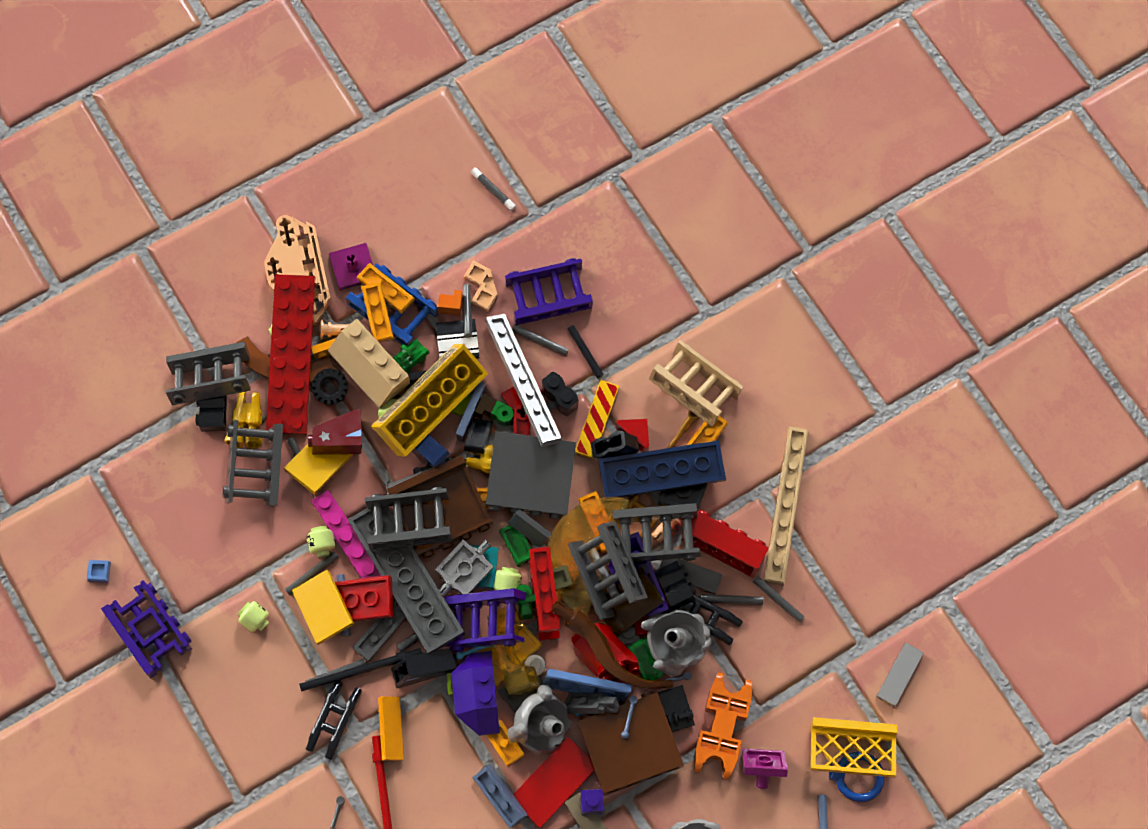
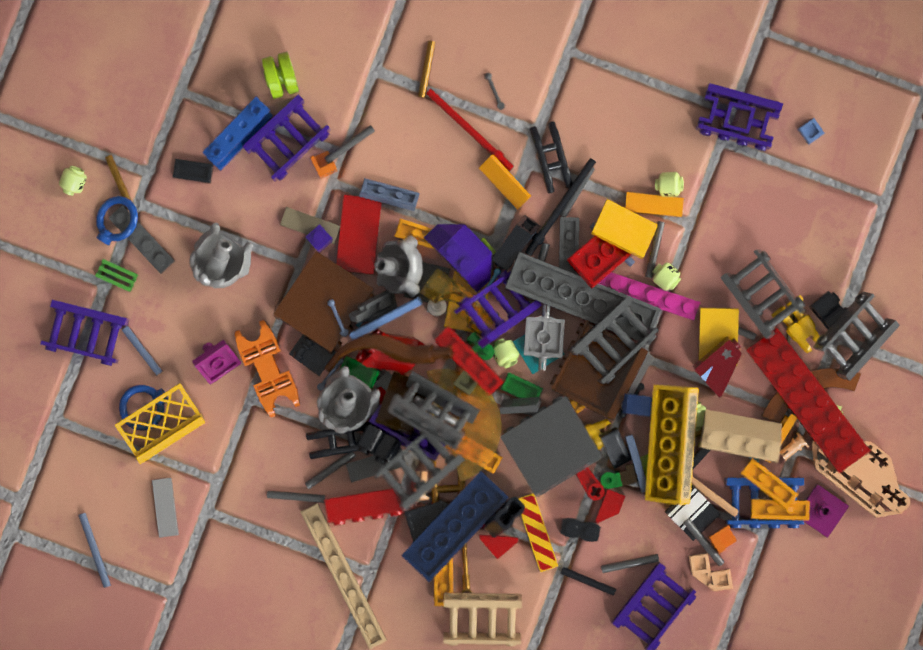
camera: 145 degrees right, 15 degrees up
(281, 611) = (654, 204): none -> light orange tile
(334, 398) = (754, 388): black tyre -> none
(411, 355) = (717, 469): green hips -> none
(429, 336) = (714, 497): none -> light nougat bar
(523, 380) = (615, 515): plate -> none
(988, 685) = (94, 550): none -> sand blue bar

